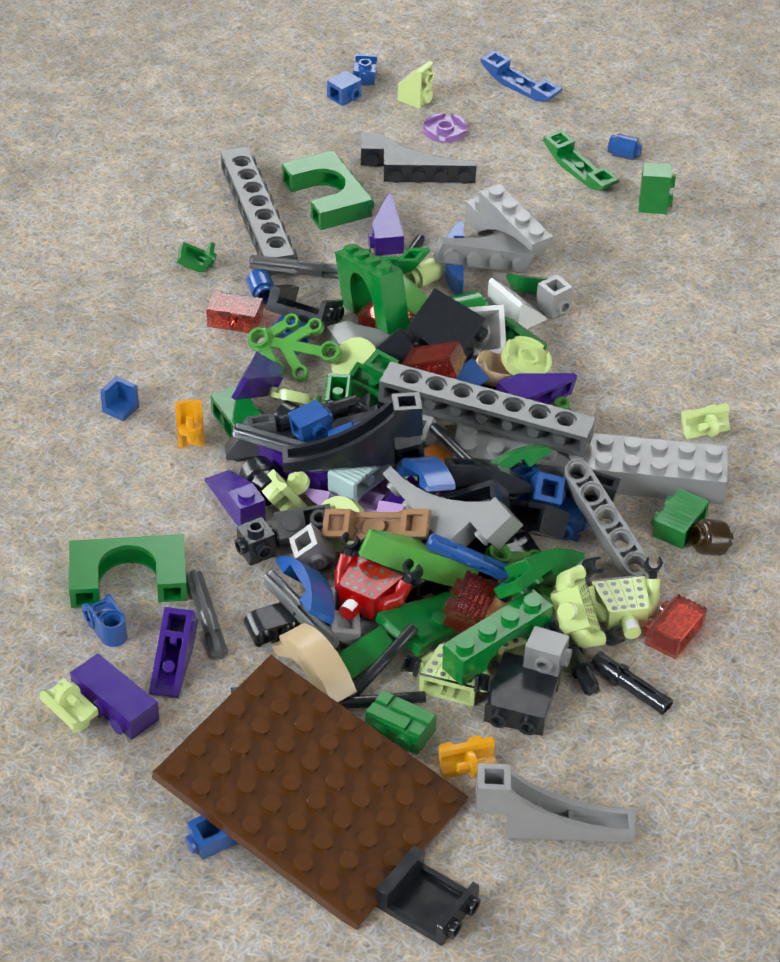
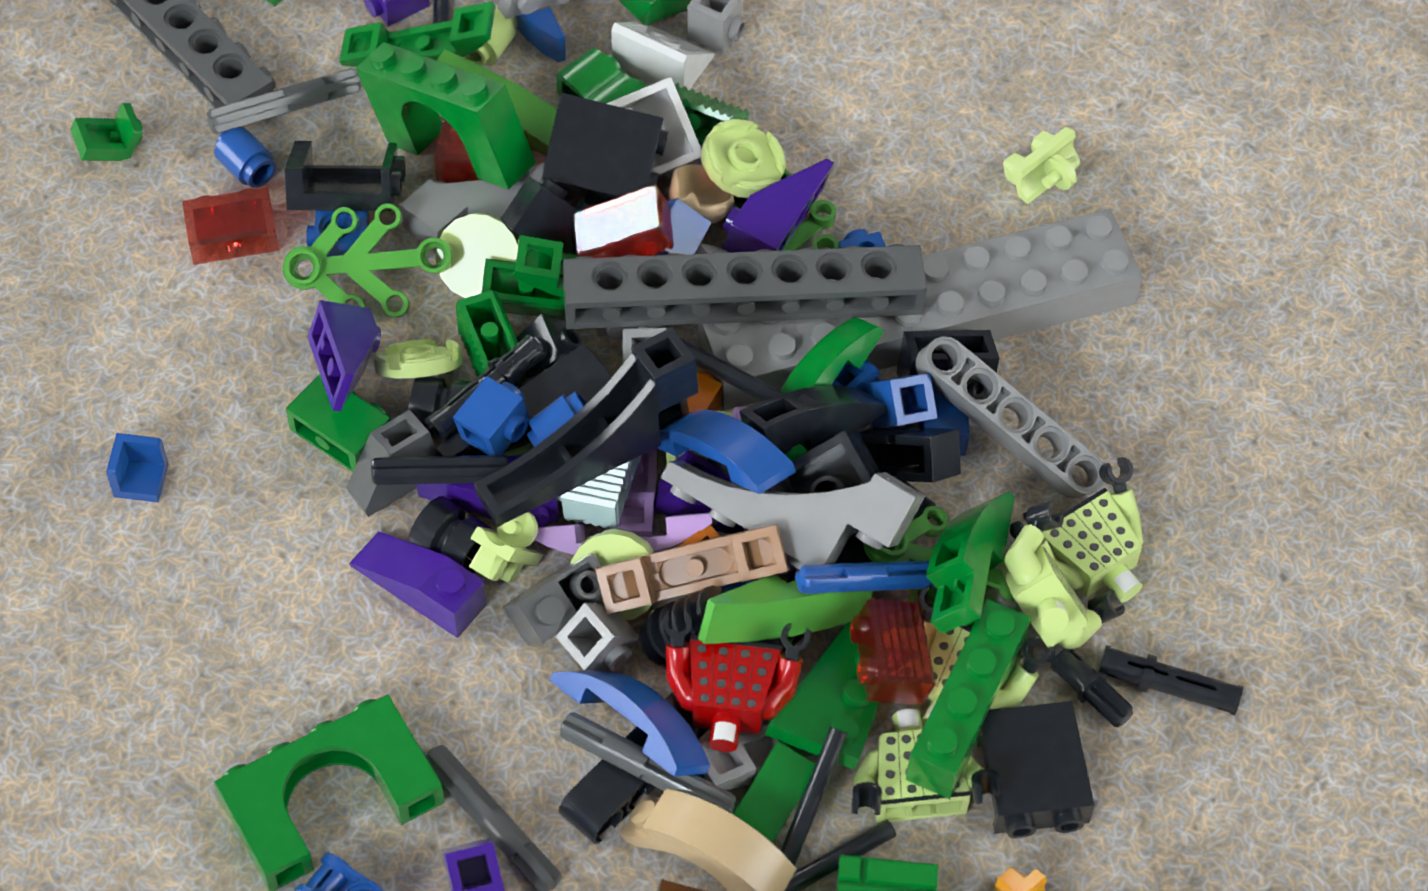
camera: 25 degrees left, 15 degrees up
(189, 422) = (280, 473): light orange hips -> none
(256, 541) = (501, 656): black brick -> none
(547, 651) = (1049, 693): light grey brick -> none
(675, 625) = (1183, 557): clear red brick -> none
(678, 517) = (1096, 358): green brick -> none
(711, 537) = (1156, 376): dark brown head -> none

